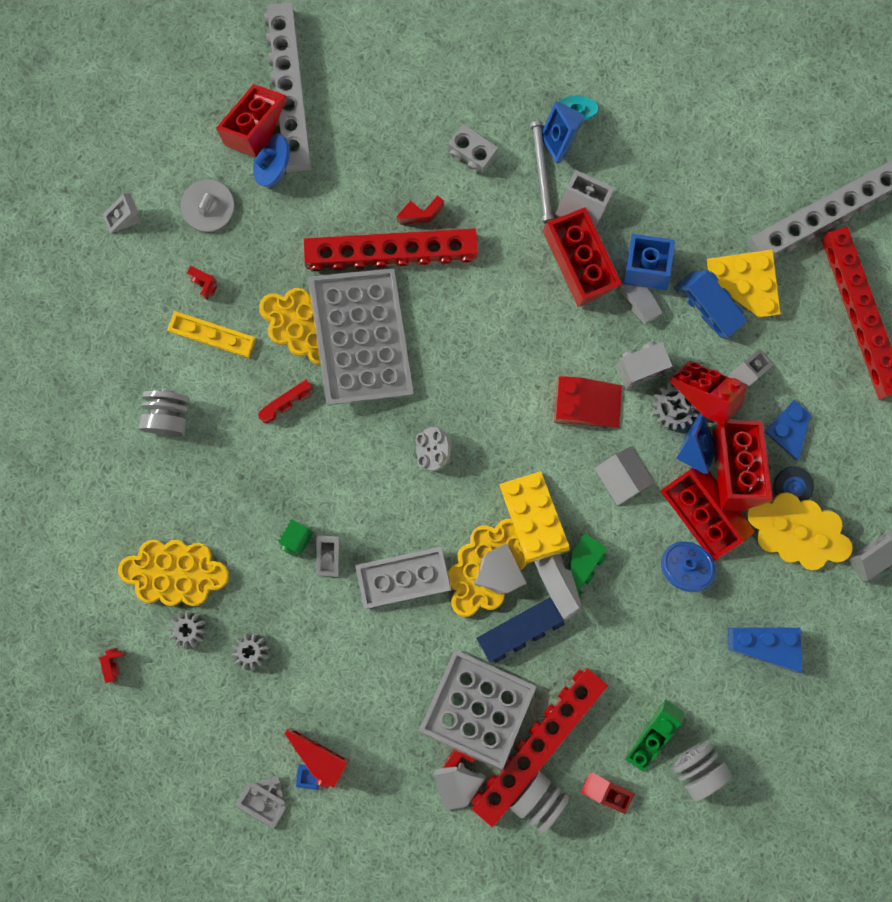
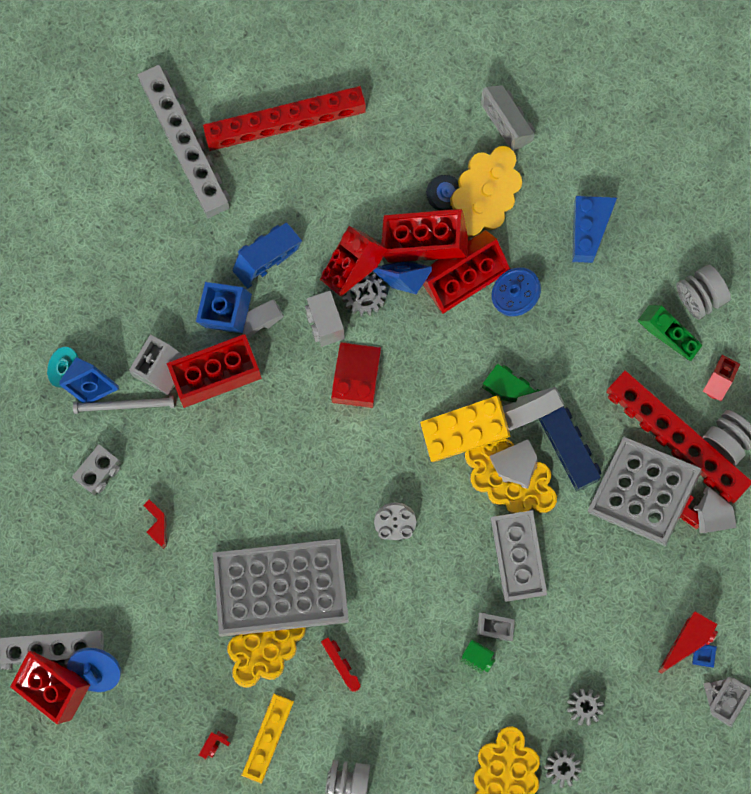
camera: 85 degrees left, 5 degrees down
(207, 205) = (134, 739): light grey shield -> none
(380, 242) = (187, 480): red brick -> none
(624, 475) = (427, 345): light grey slope -> none
(749, 280) = (246, 218): yellow plate -> none
(752, 368) = (331, 221): light grey slope -> none
(790, 429) = (389, 192): blue wing -> none

